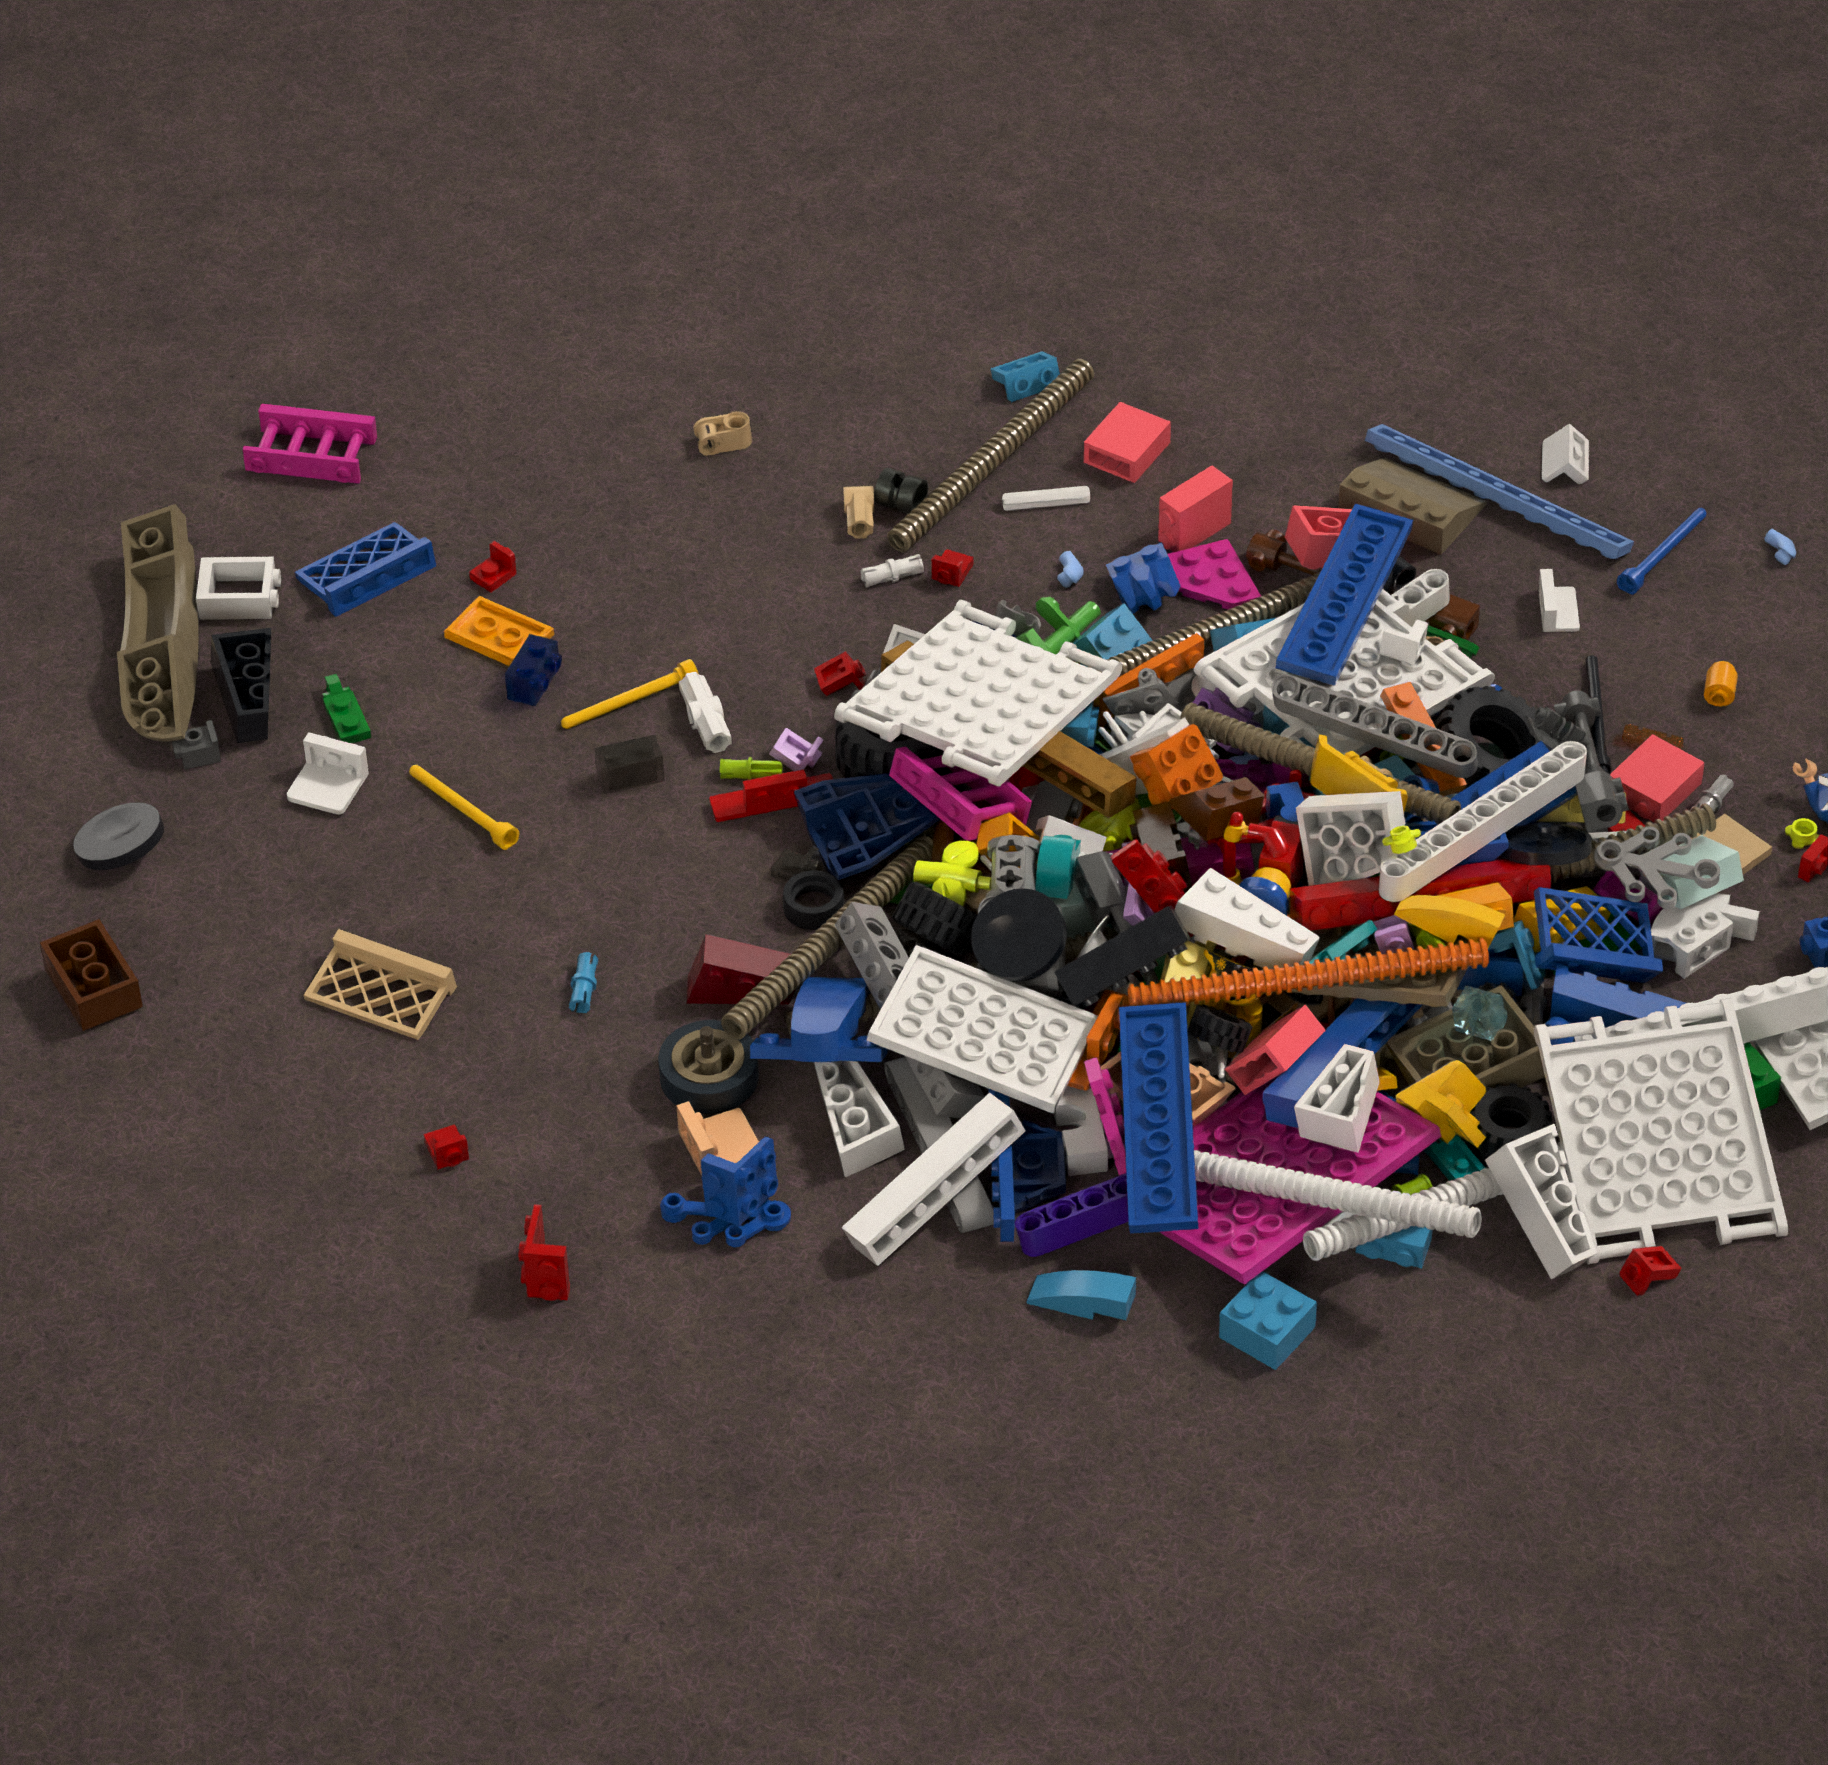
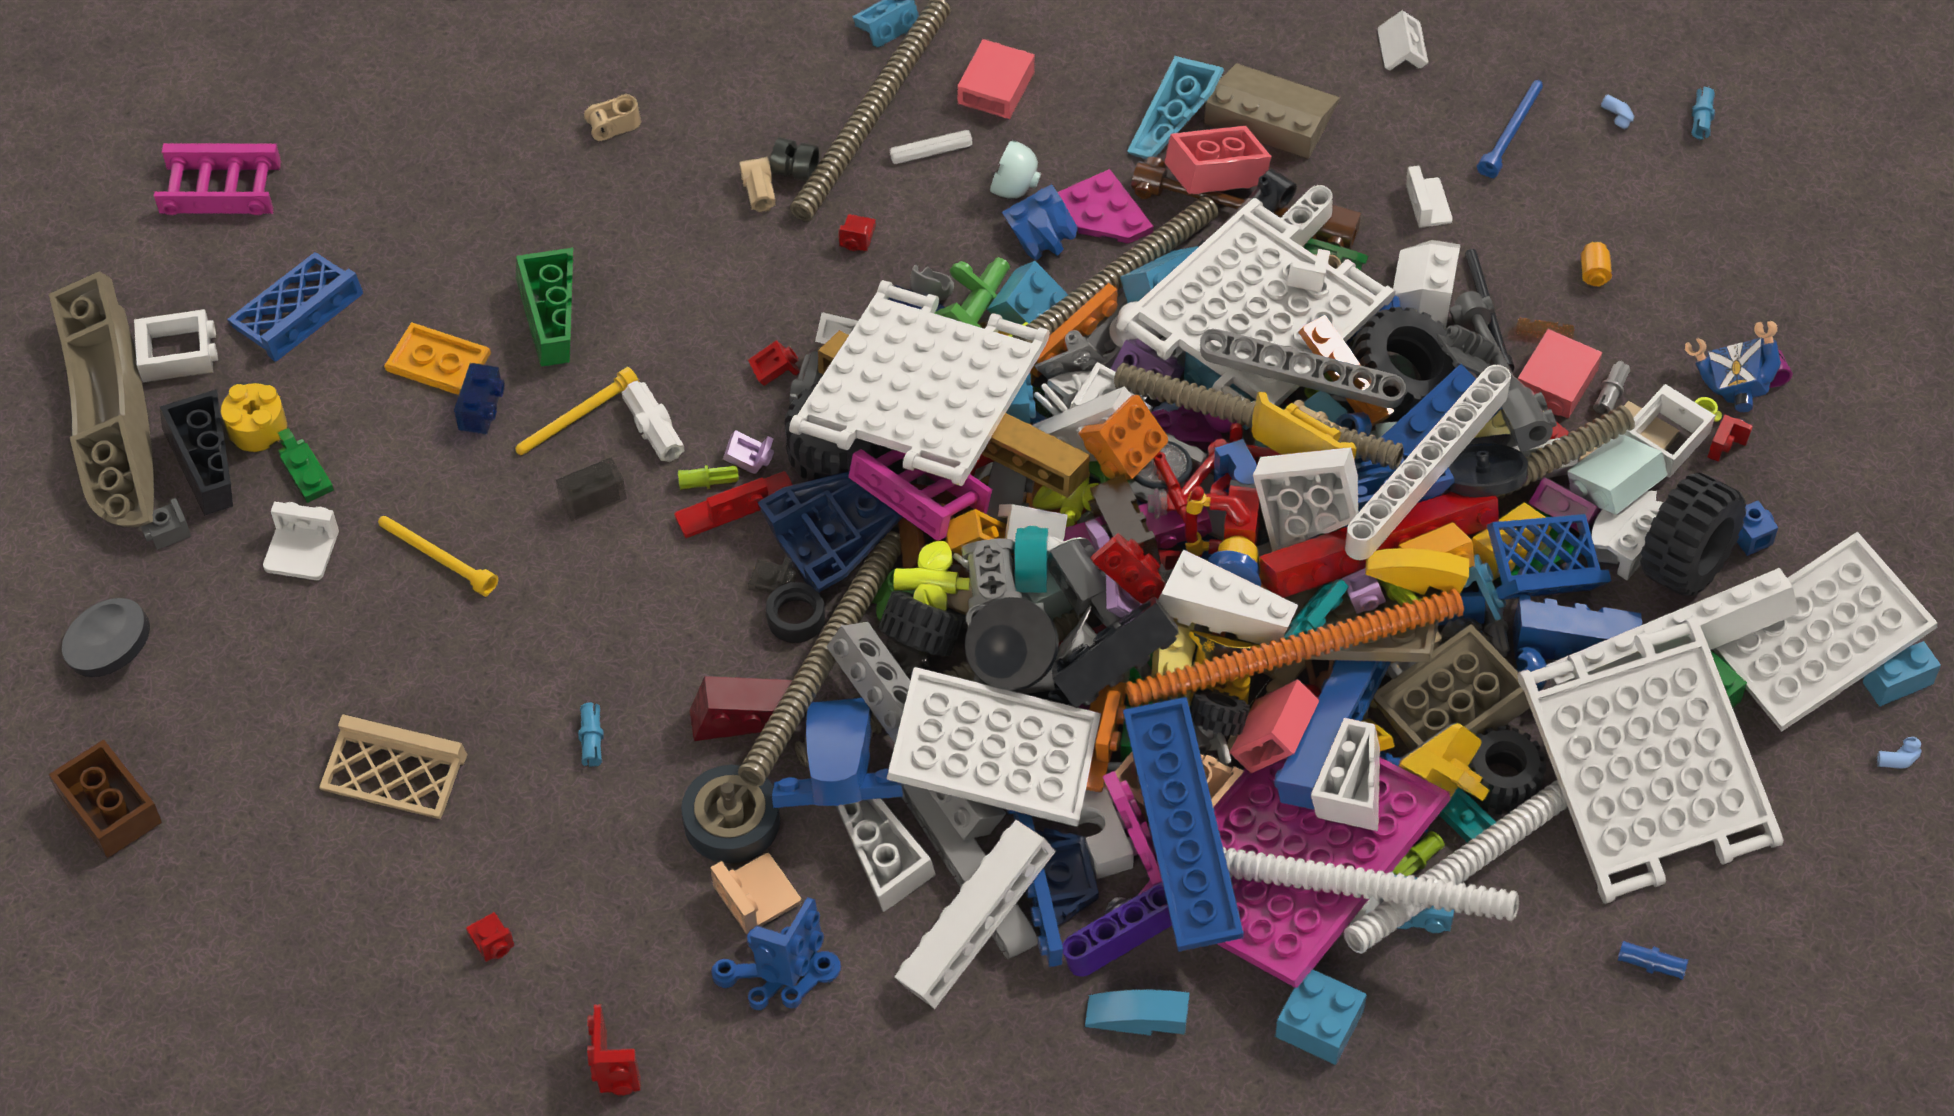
camera: 10 degrees left, 10 degrees up
(303, 659) = (253, 416): none -> yellow brick
(495, 569) = (421, 291): red bracket -> none
(621, 590) = (547, 299): none -> green wedge
(892, 570) = (801, 243): white pin -> none
(1072, 569) = (971, 221): light blue arm -> none
(1127, 527) = (1016, 172): none -> light aqua cylinder
(1195, 510) = (1076, 146): coral brick -> none
(1212, 807) = (1173, 475): reddish brown slope -> none
(1311, 480) = (1176, 101): none -> medium azure wedge
(1344, 594) = (1243, 229): blue plate -> none
(1402, 839) = (1362, 499): neon yellow plate -> none
(1479, 1013) = (1458, 649): clear light blue brick -> none
(1507, 495) = (1357, 89): medium blue plate -> none
(1540, 673) = (1427, 278): none -> white wedge
(1543, 1200) = (1558, 852): white wedge -> none
(1624, 1318) = (1653, 960): none -> blue pin
(1648, 1265) = (1662, 902): red bracket -> none
(1652, 864) = (1586, 477): light grey plant -> none
(1754, 930) = (1693, 534): none -> black tyre
(1762, 816) = (1681, 411): none -> white window

